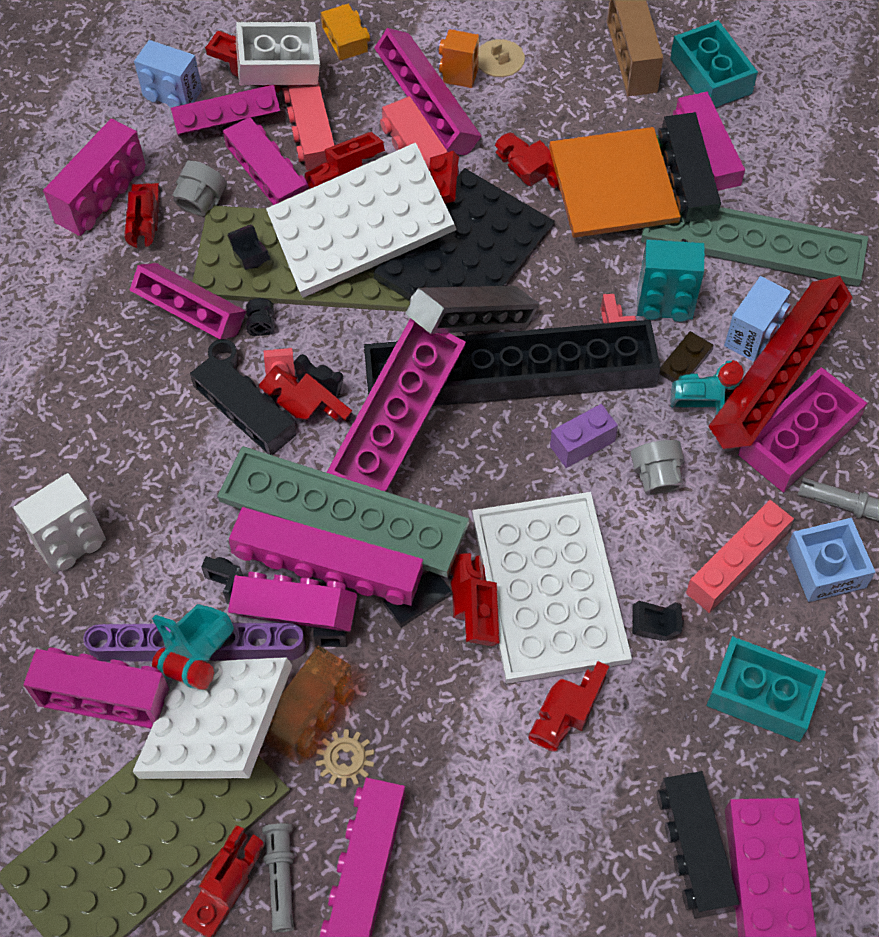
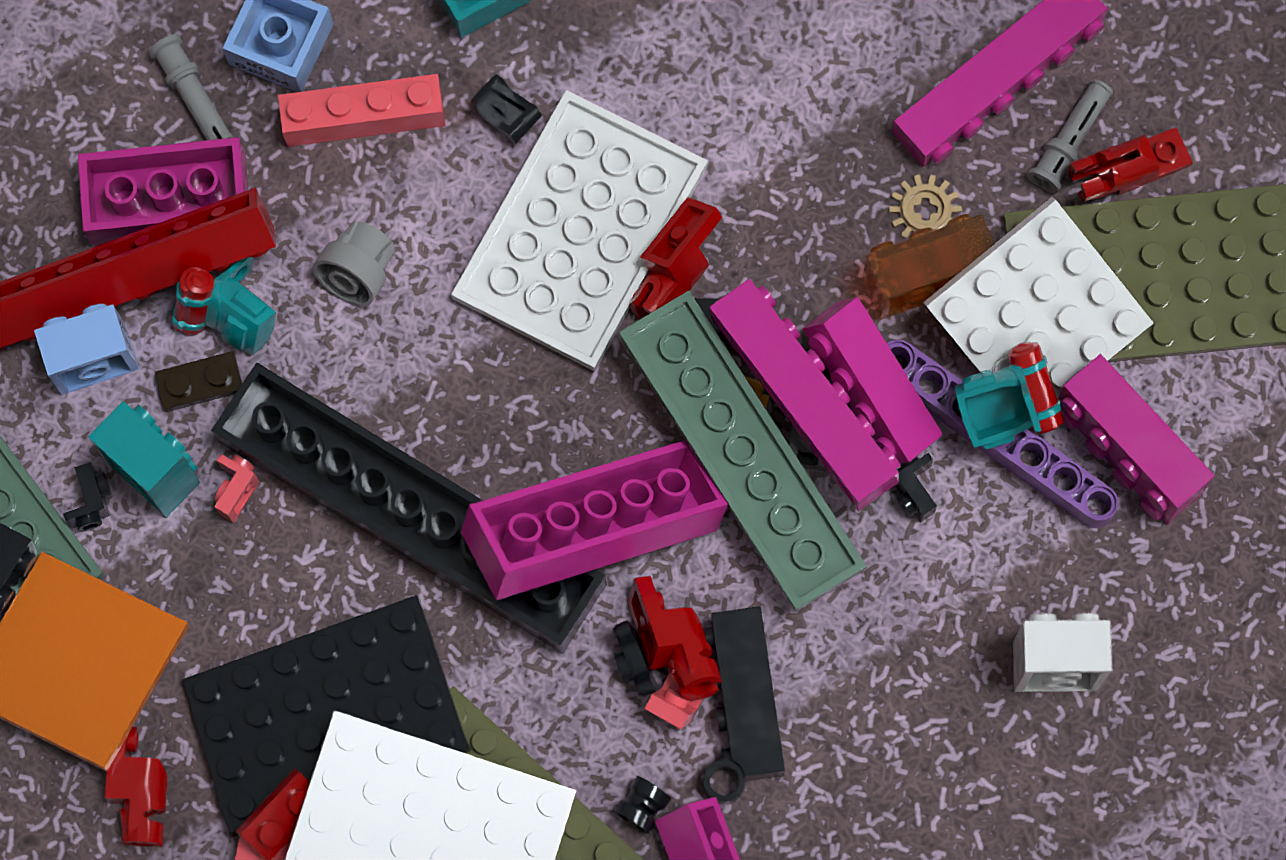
camera: 140 degrees left, 15 degrees up
(471, 308) = (414, 566): flat silver brick -> none
(567, 707) = (667, 91): red plate -> none
(583, 435) = (402, 363): medium lavender brick -> none

